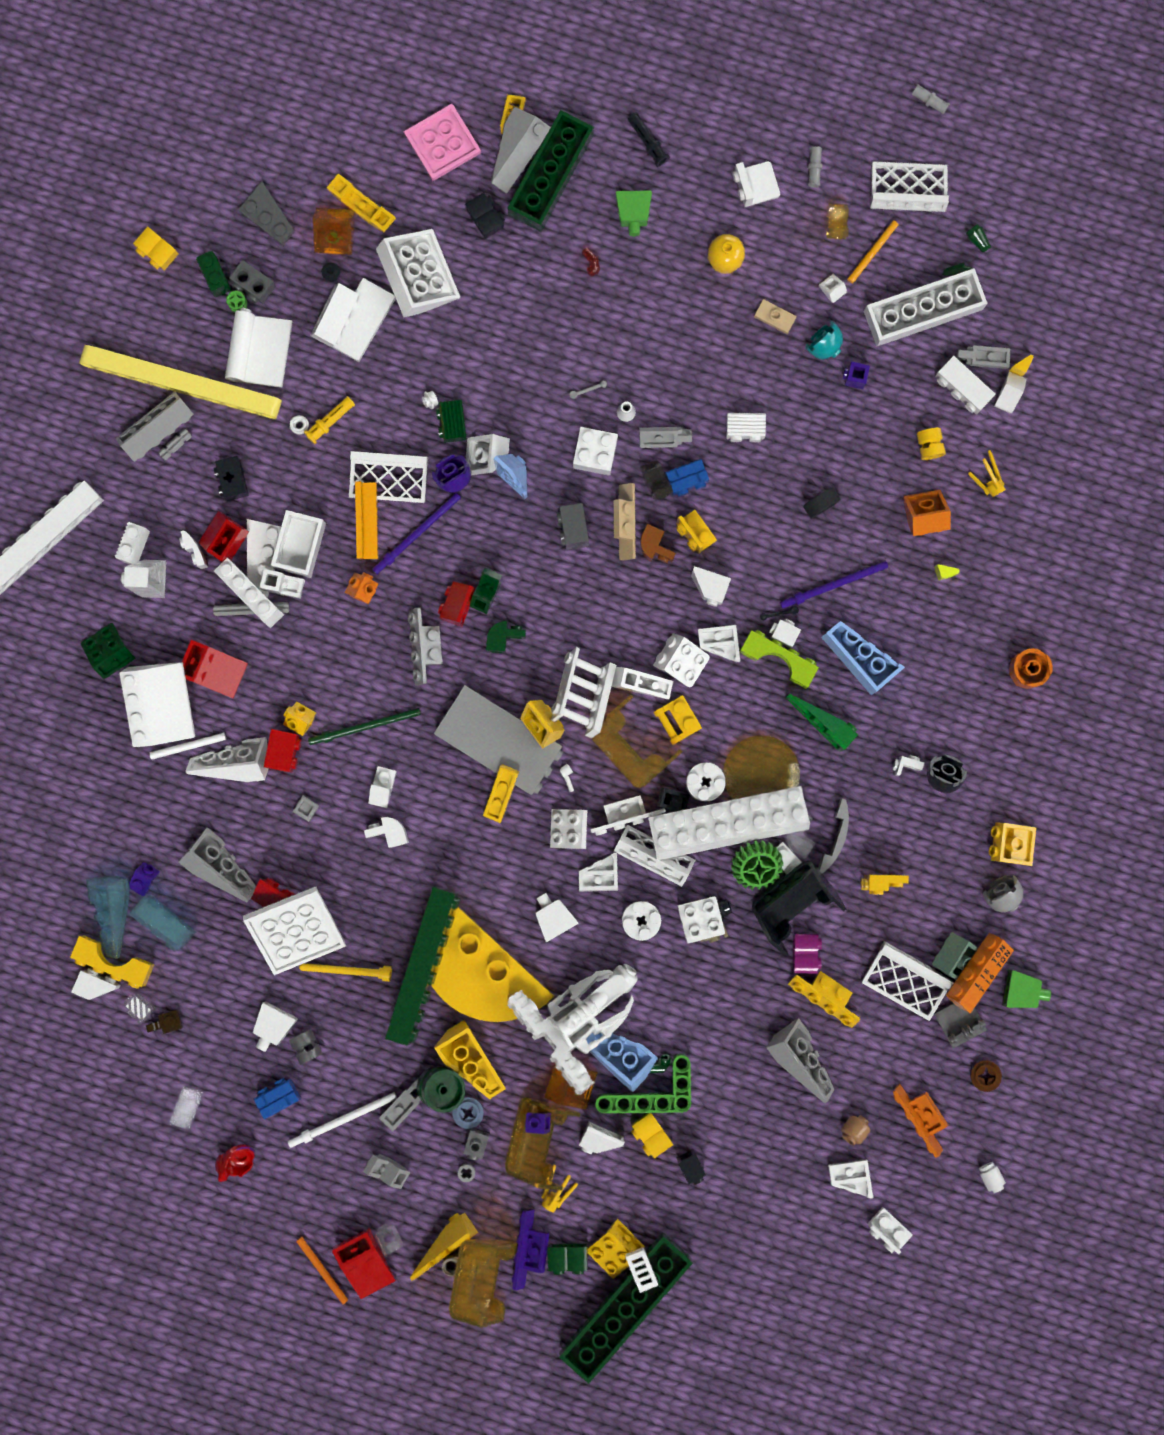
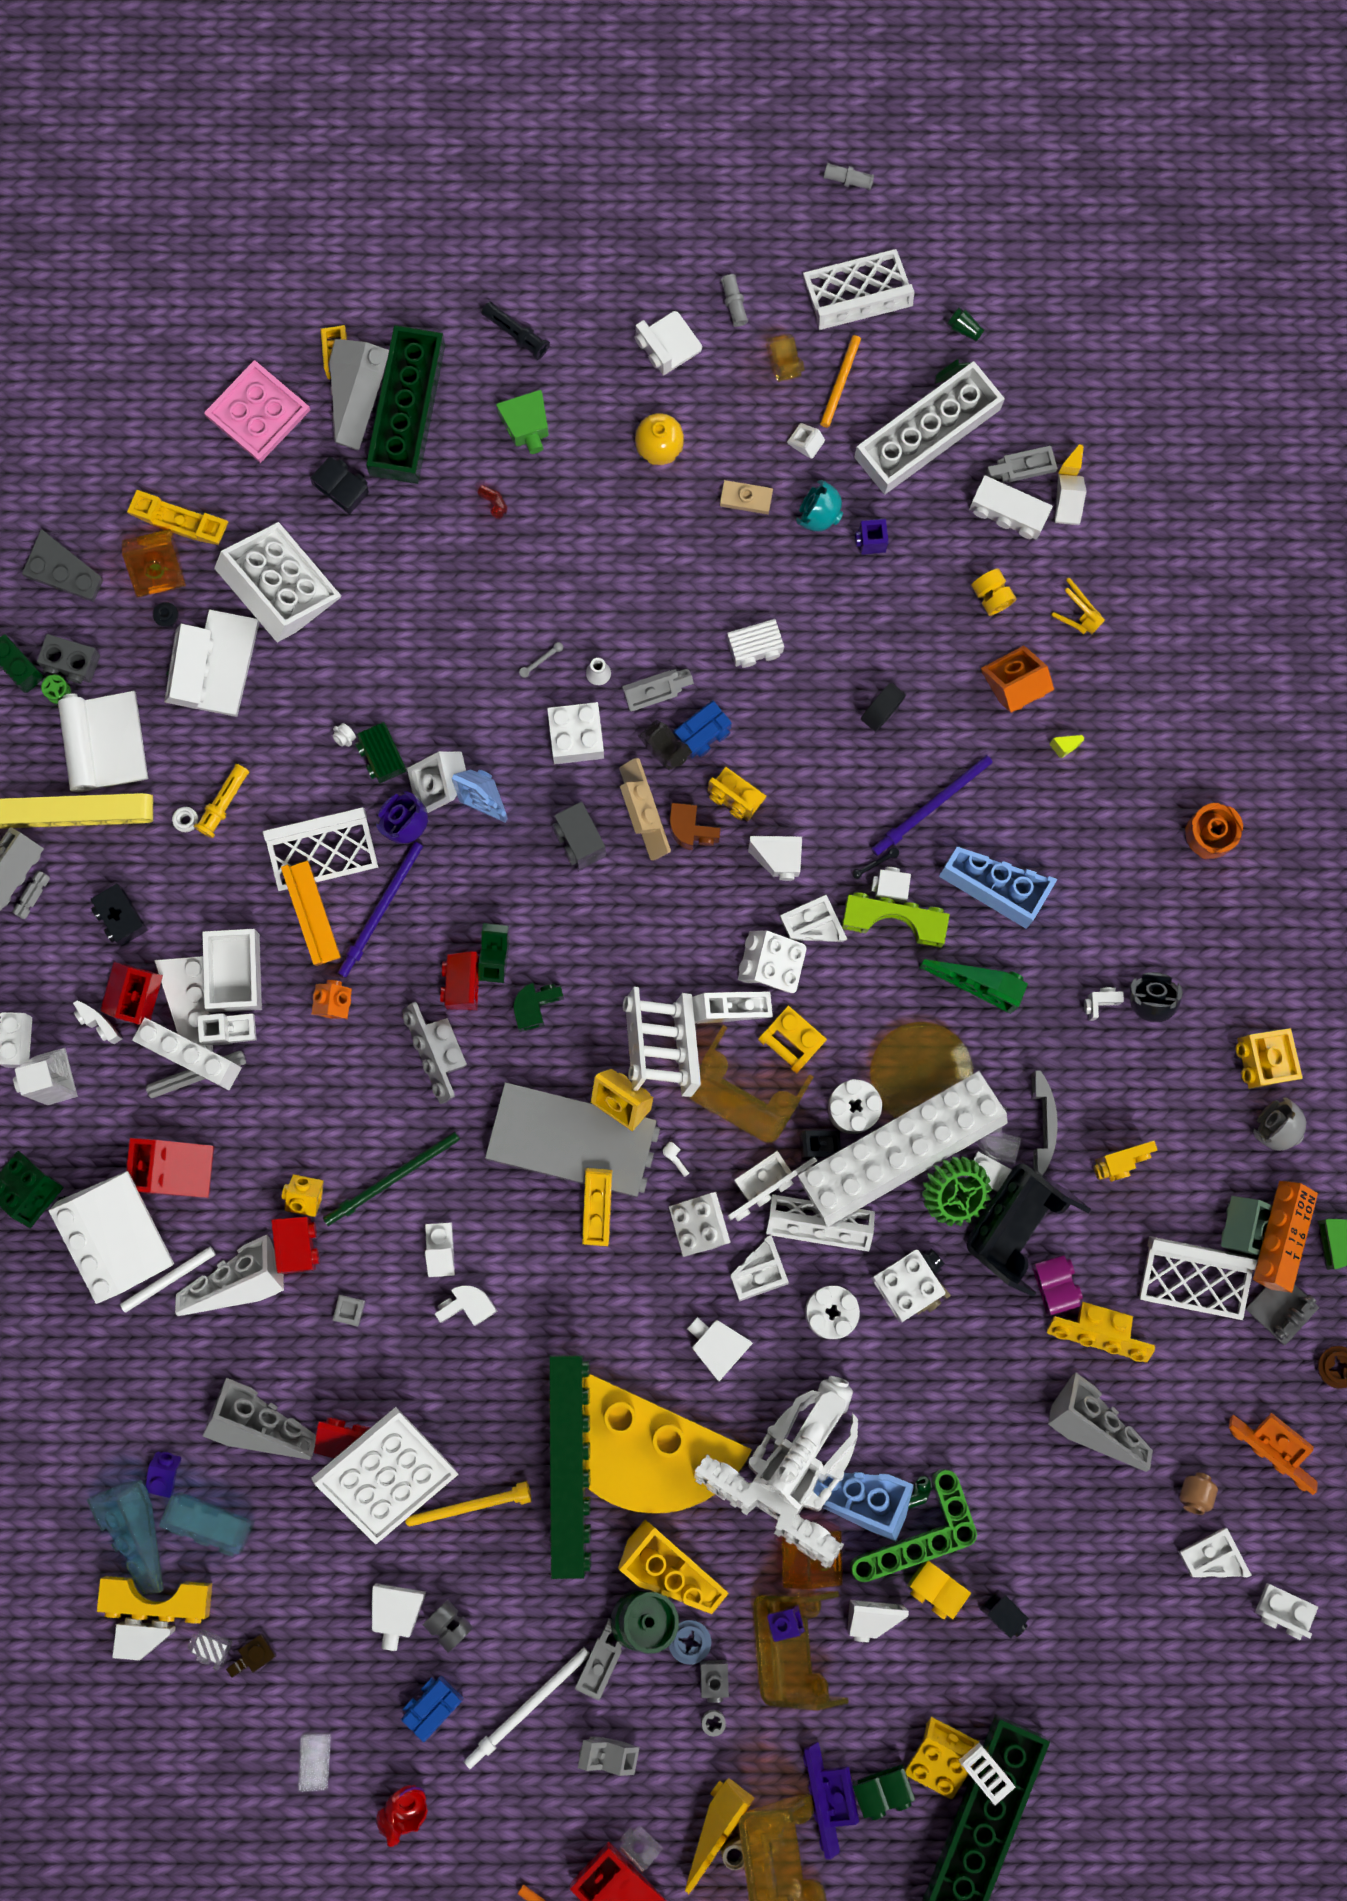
camera: 25 degrees left, 5 degrees down
(553, 1200) = (839, 1720): yellow plant -> none

